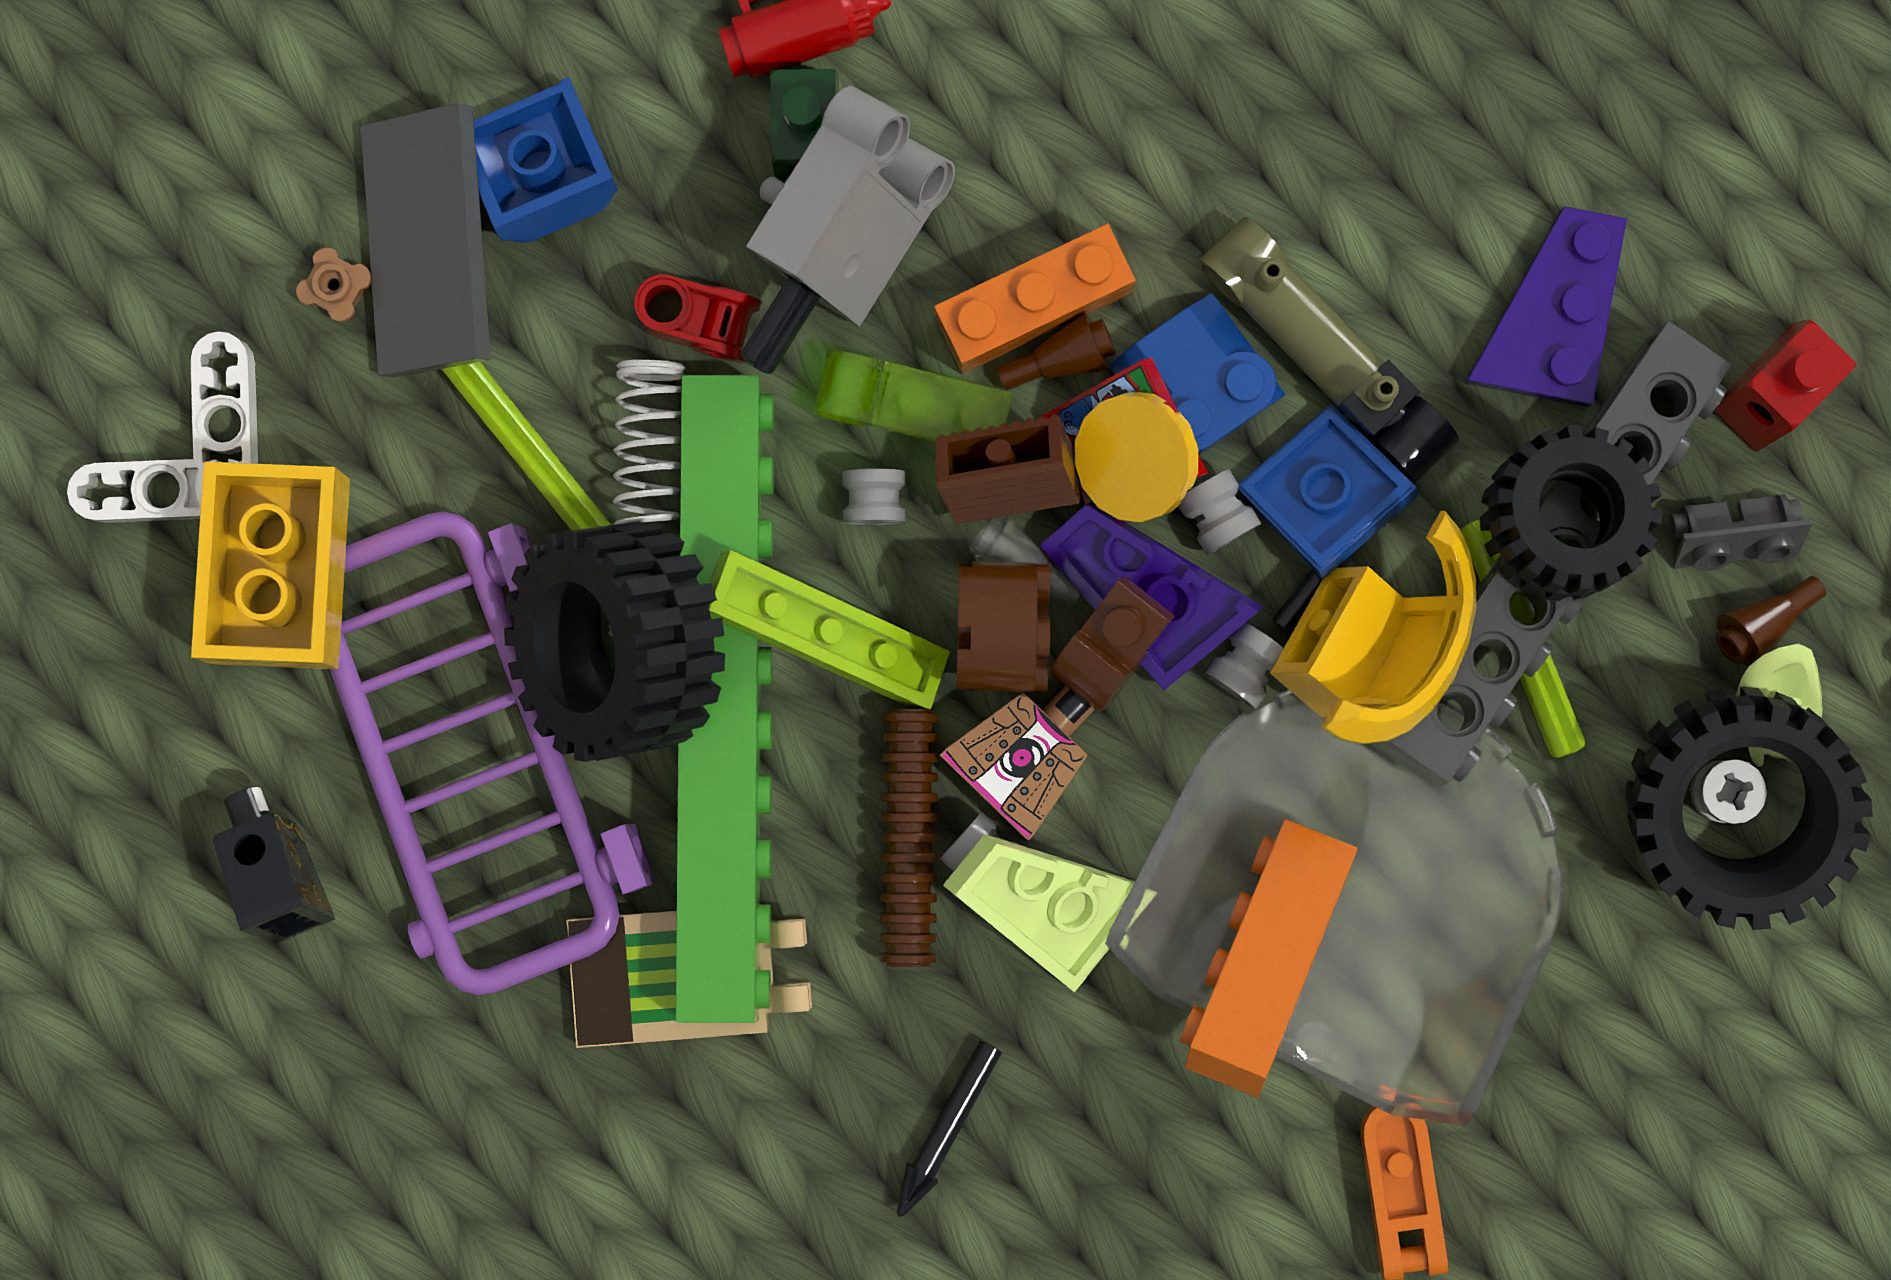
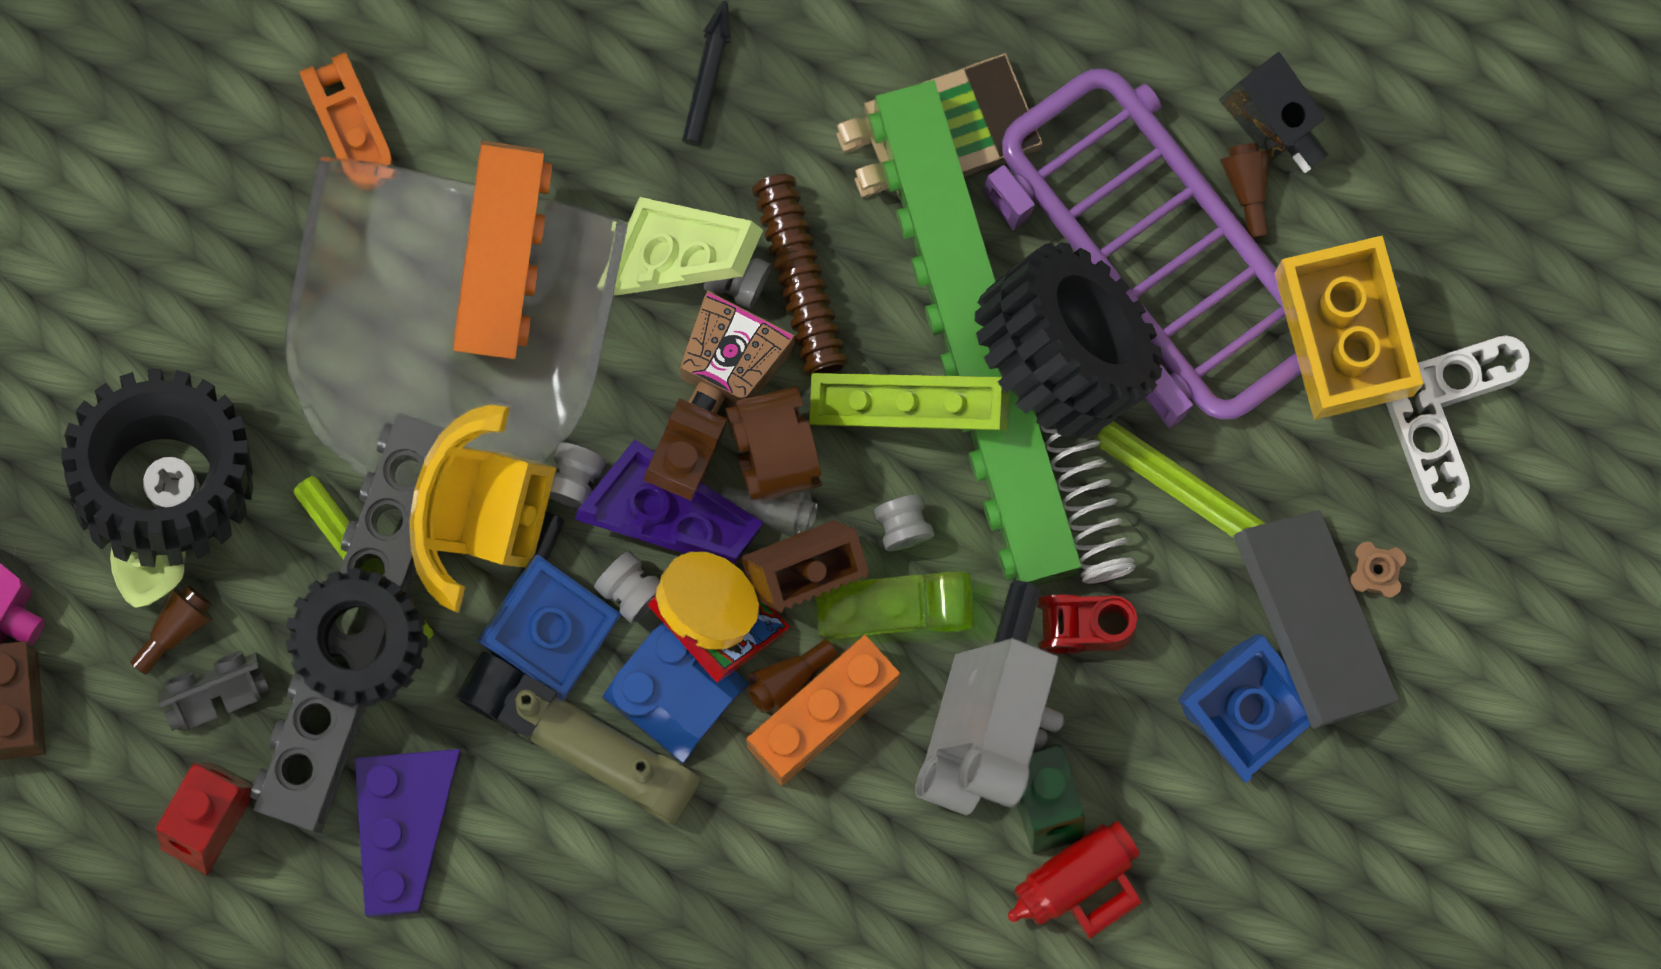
camera: 160 degrees right, 10 degrees down
(330, 805) = (1248, 176): none -> reddish brown cone

